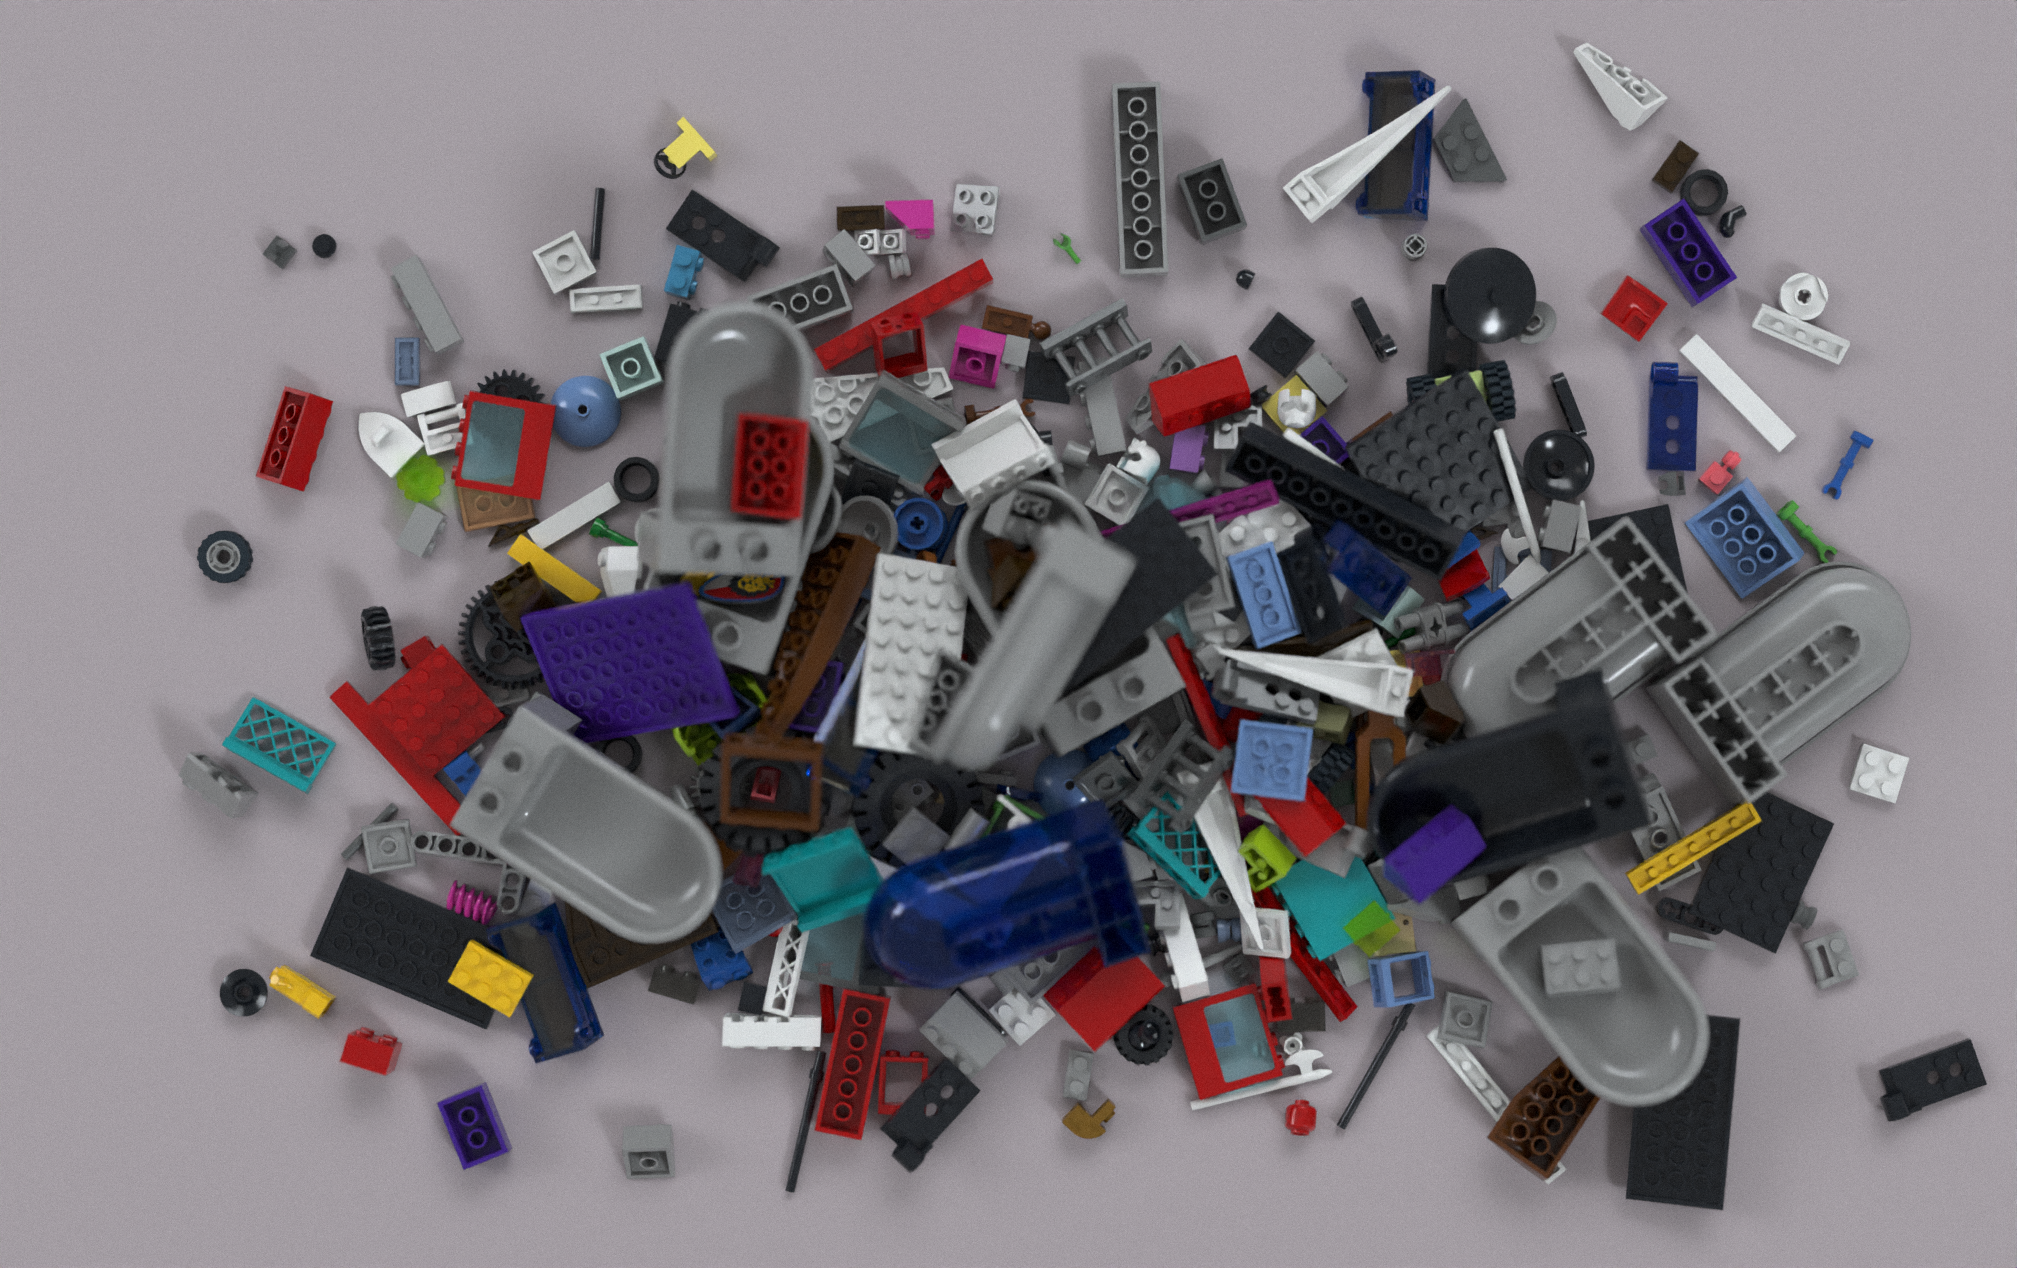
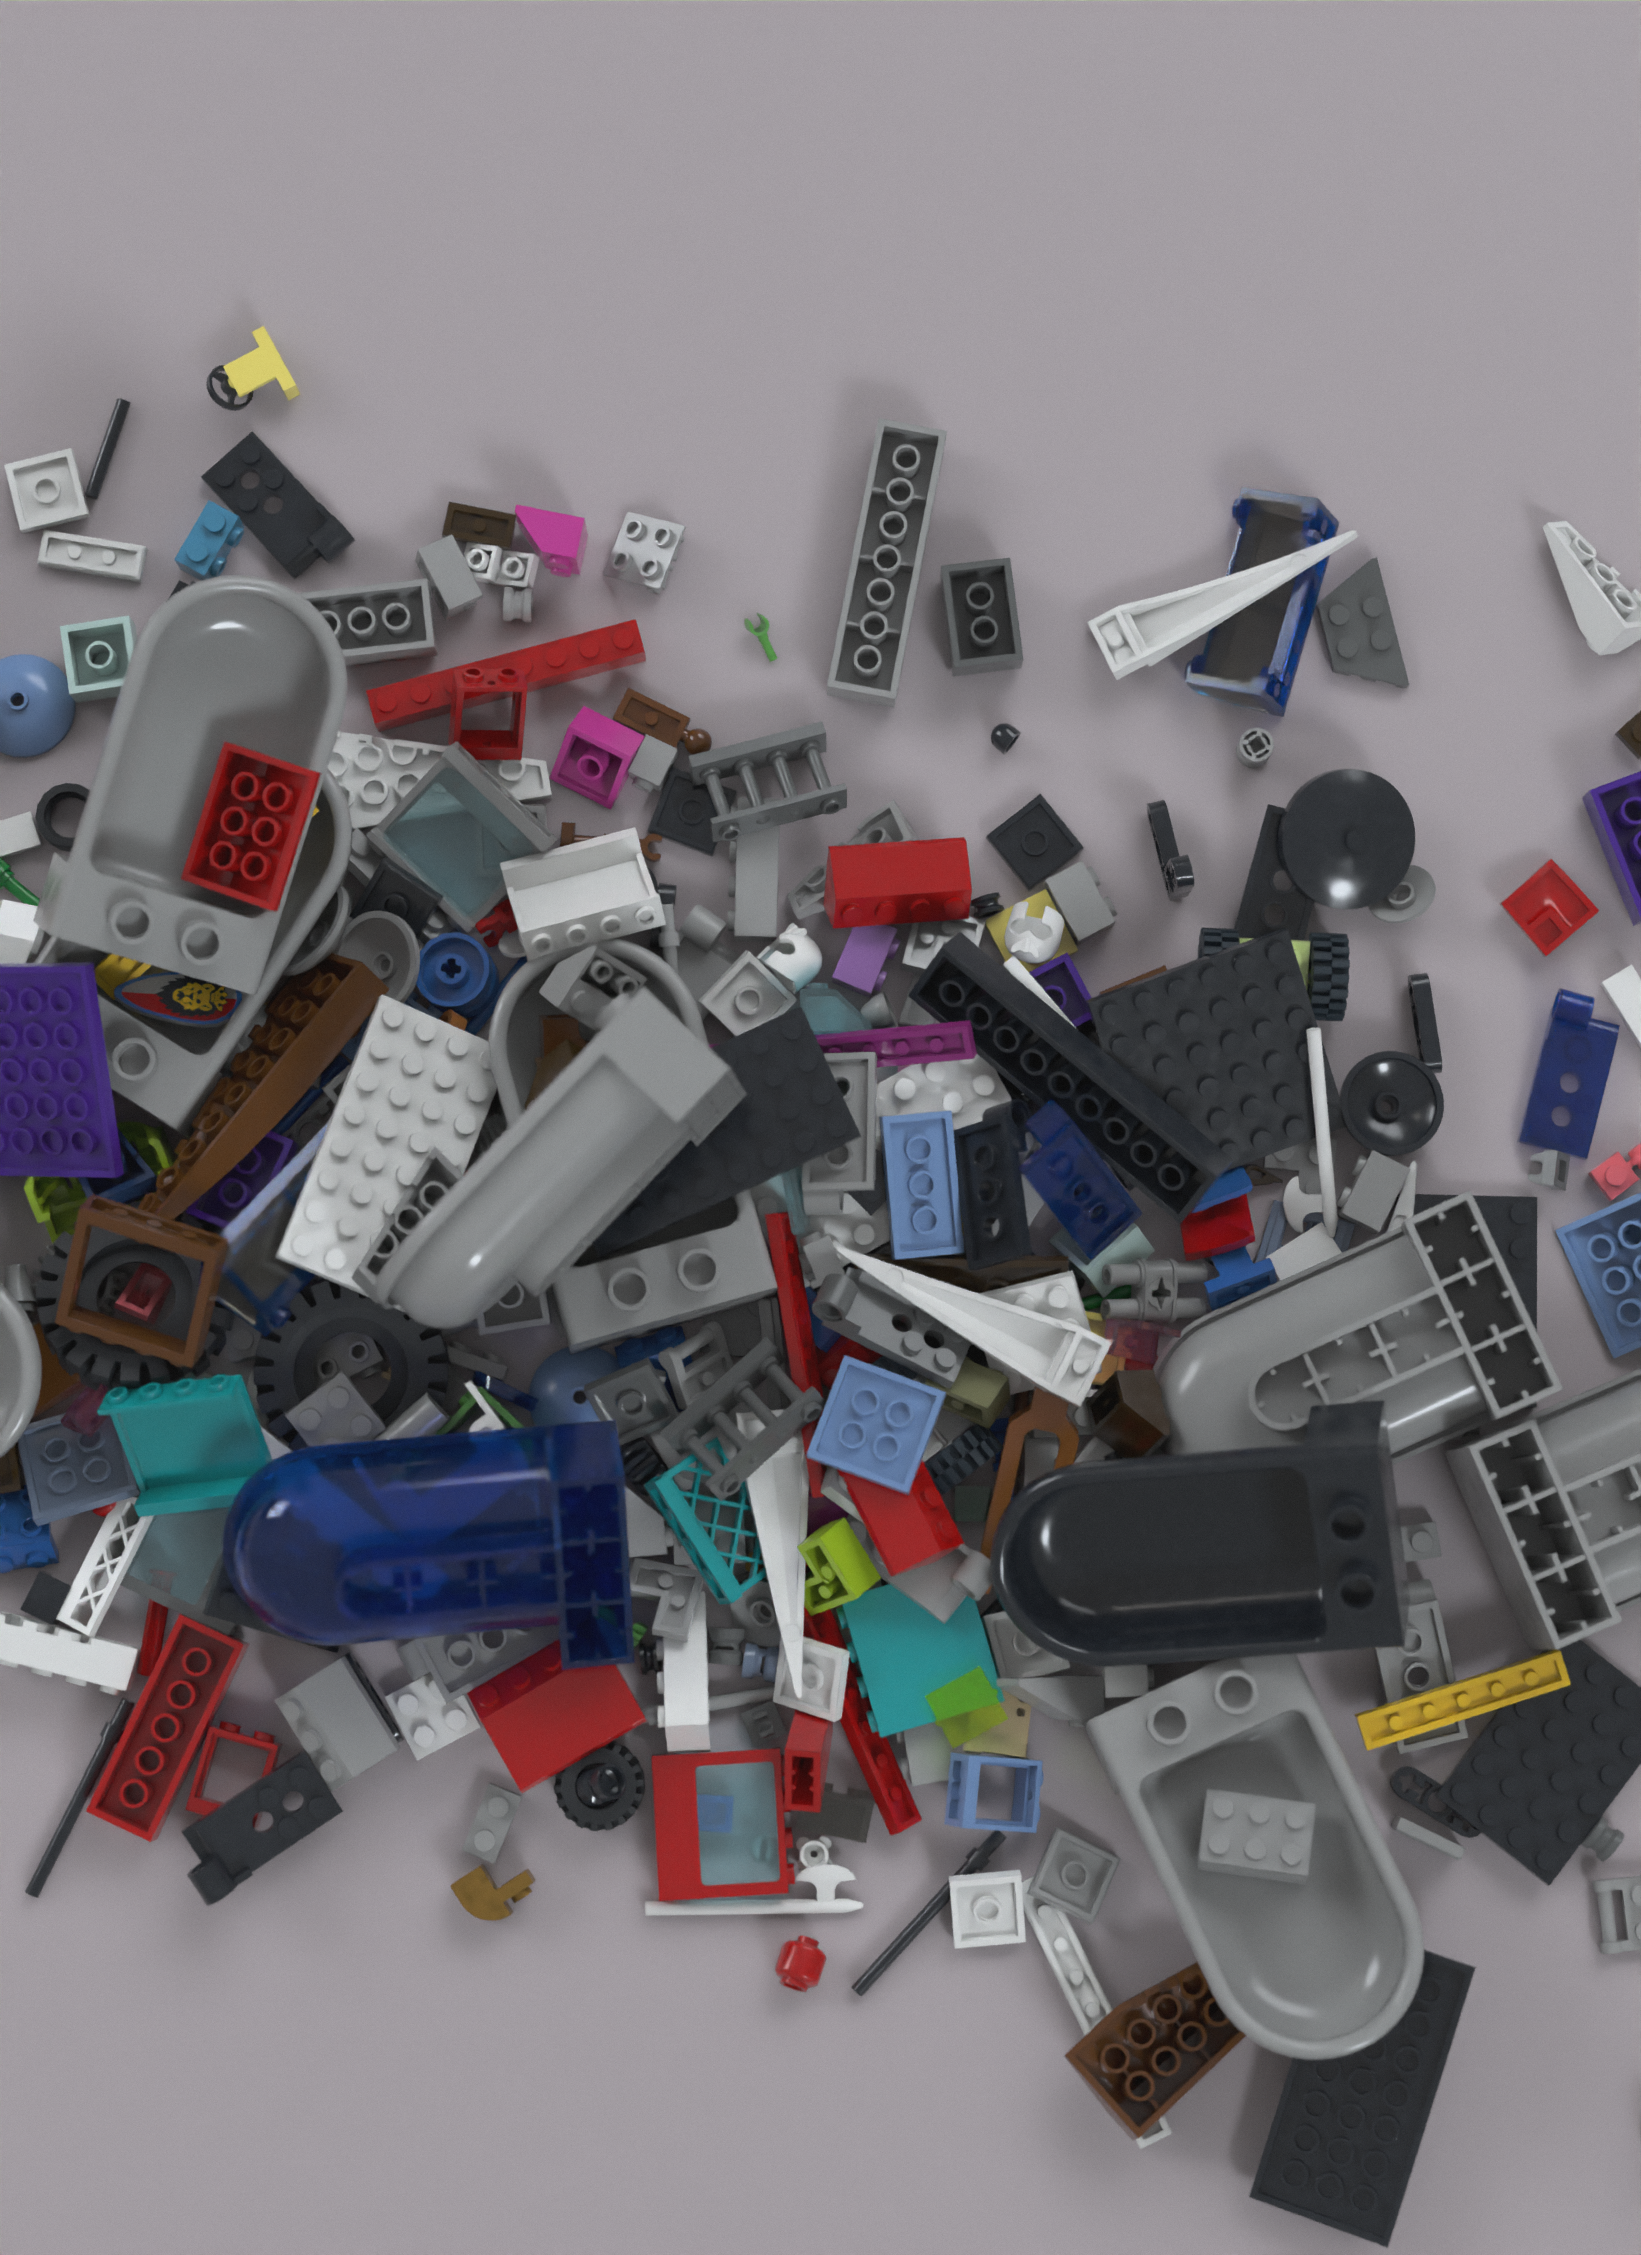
camera: 15 degrees right, 5 degrees down
(1413, 1054) = (987, 1909): none -> white plate
(1433, 854) = (1078, 1616): dark purple slope -> none

